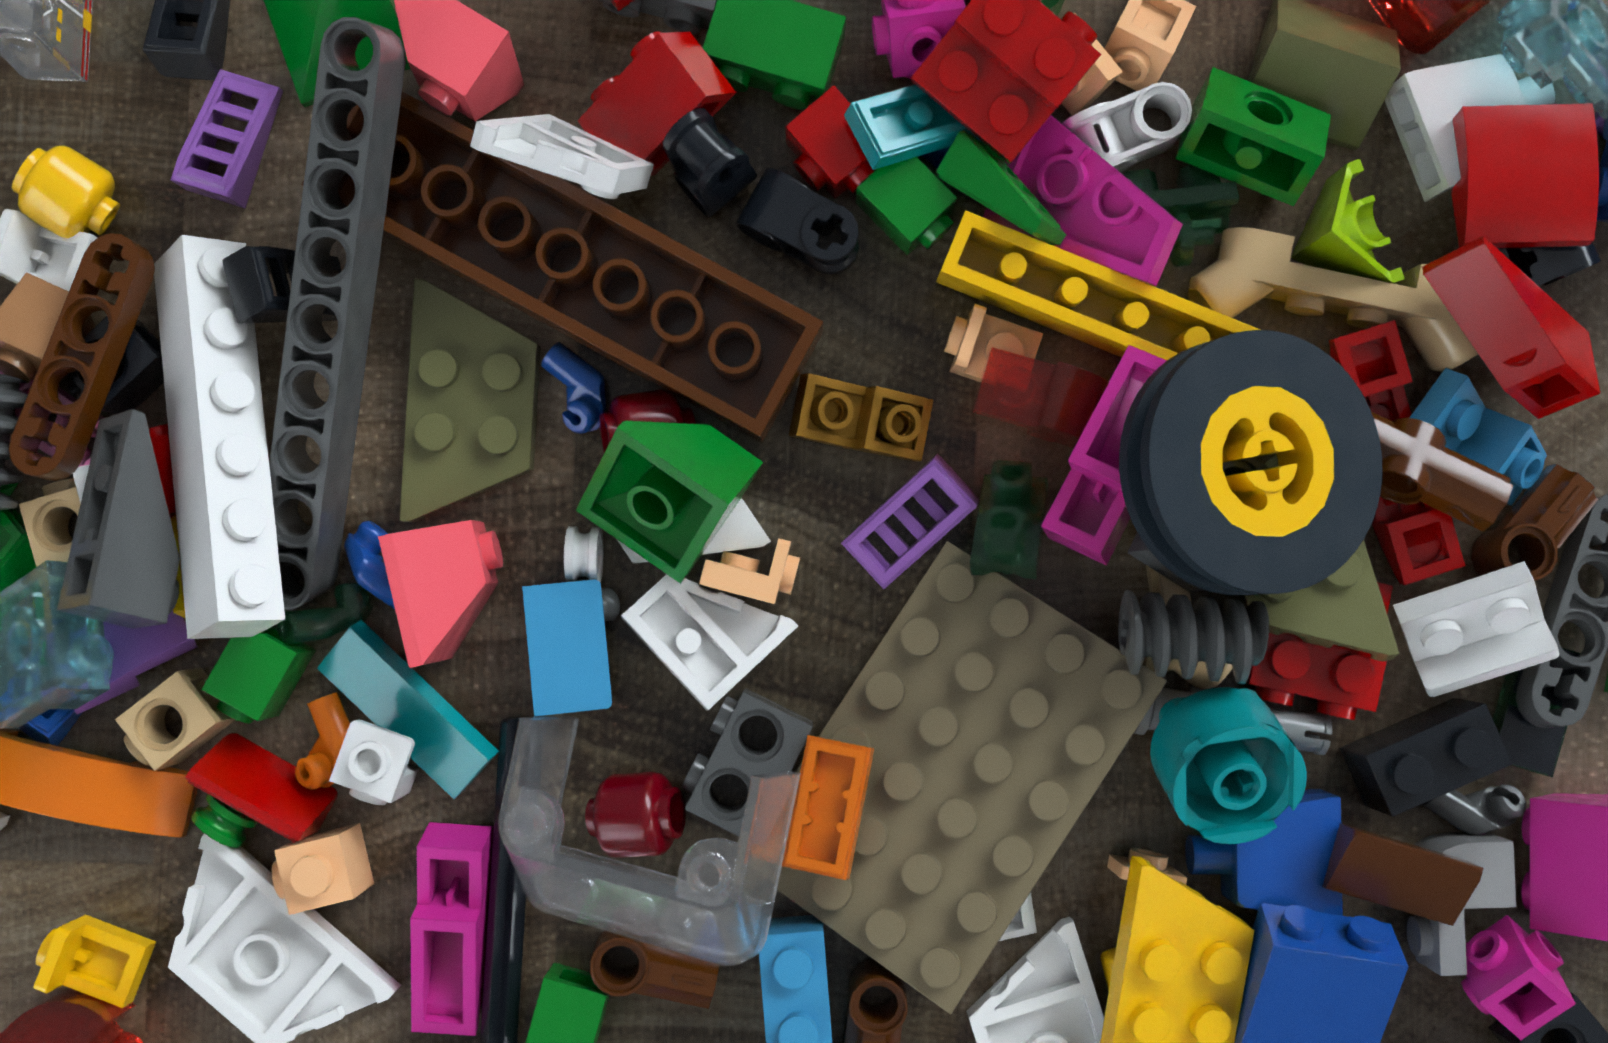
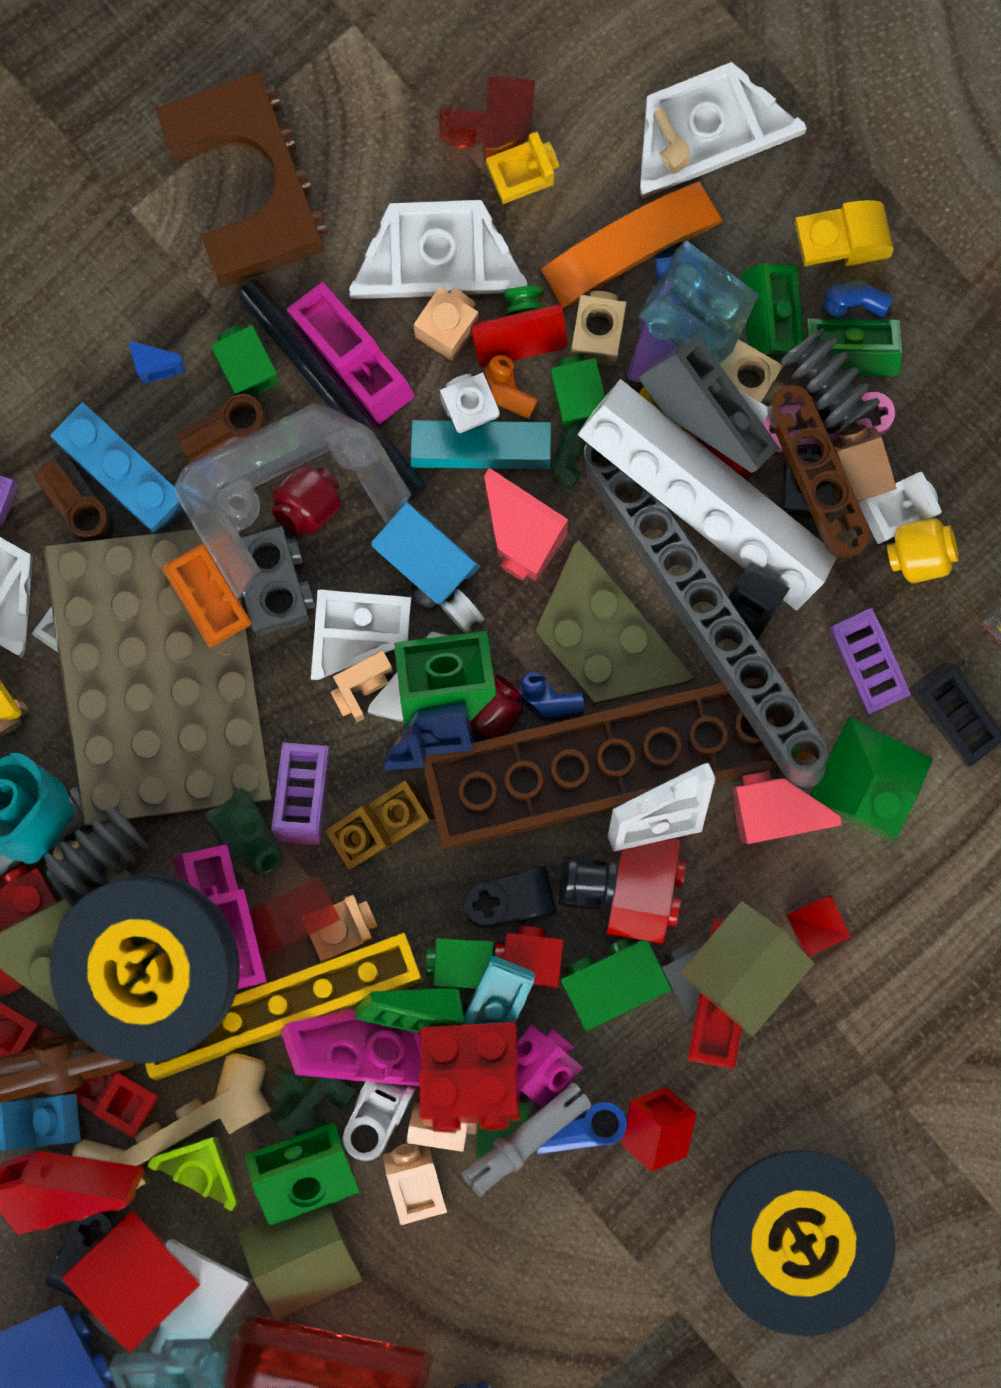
camera: 140 degrees right, 5 degrees down
(366, 562) = (572, 500): blue arm -> none
(727, 447) = (431, 732): none -> dark blue slope

